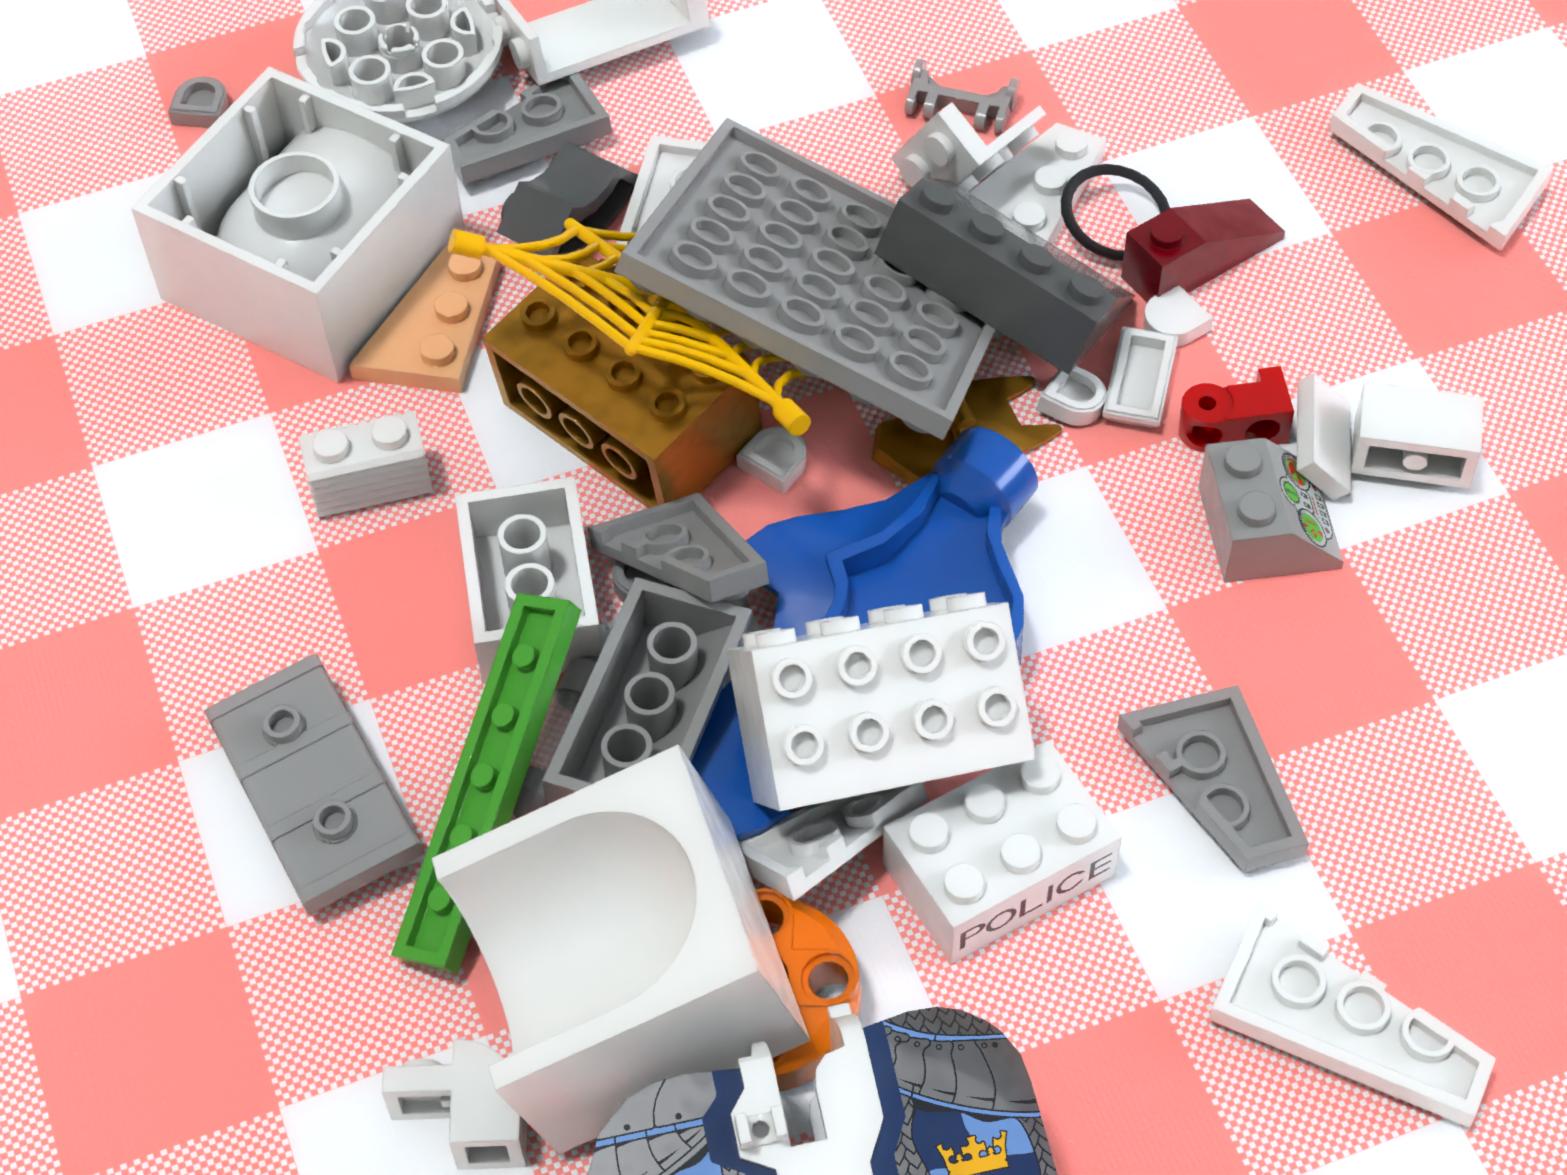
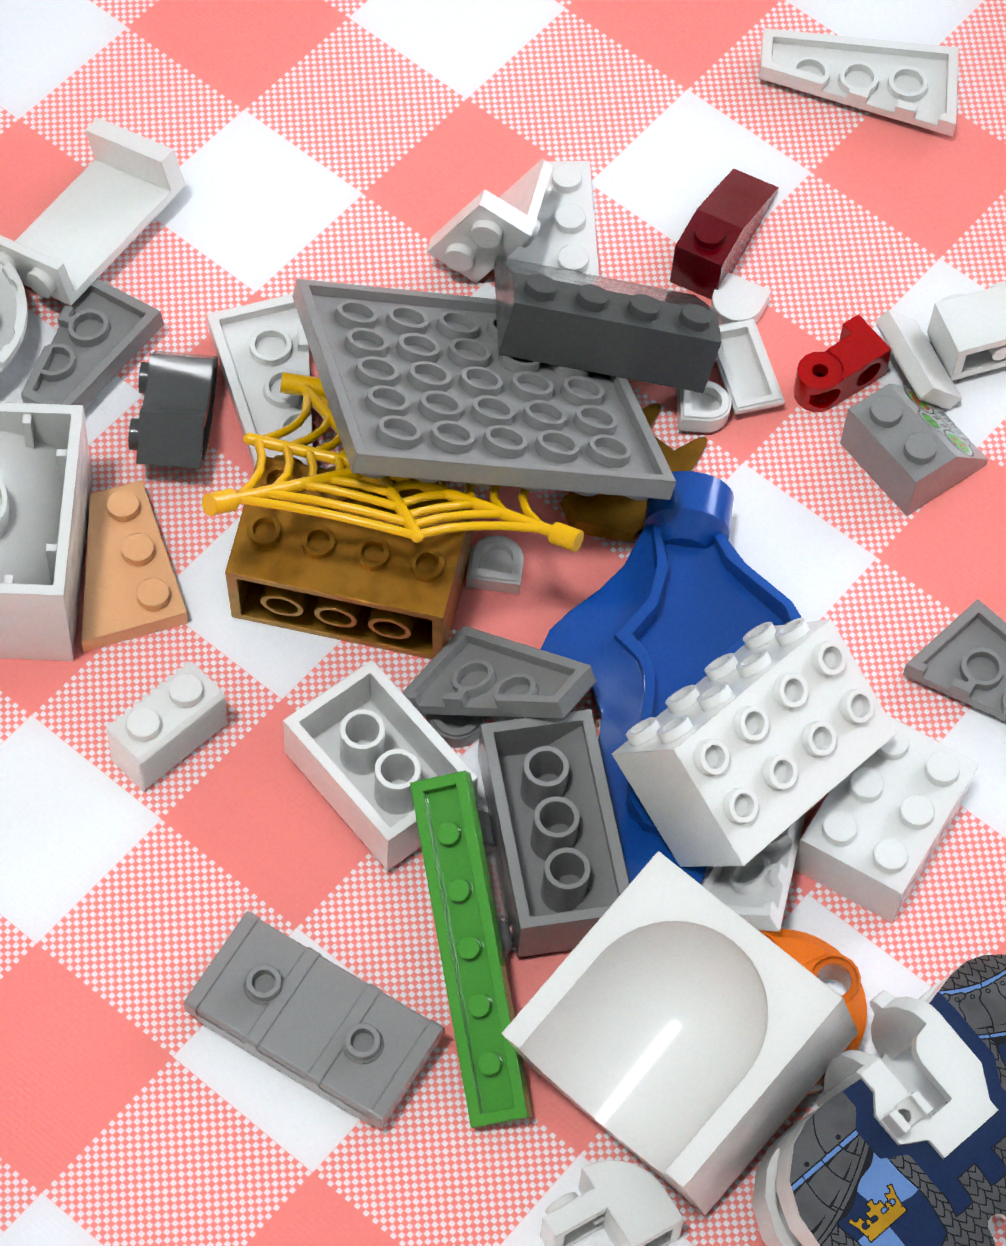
camera: 35 degrees left, 5 degrees up
(928, 92) = (411, 174): light grey piece -> none
(1098, 170) = (592, 222): black tyre -> none

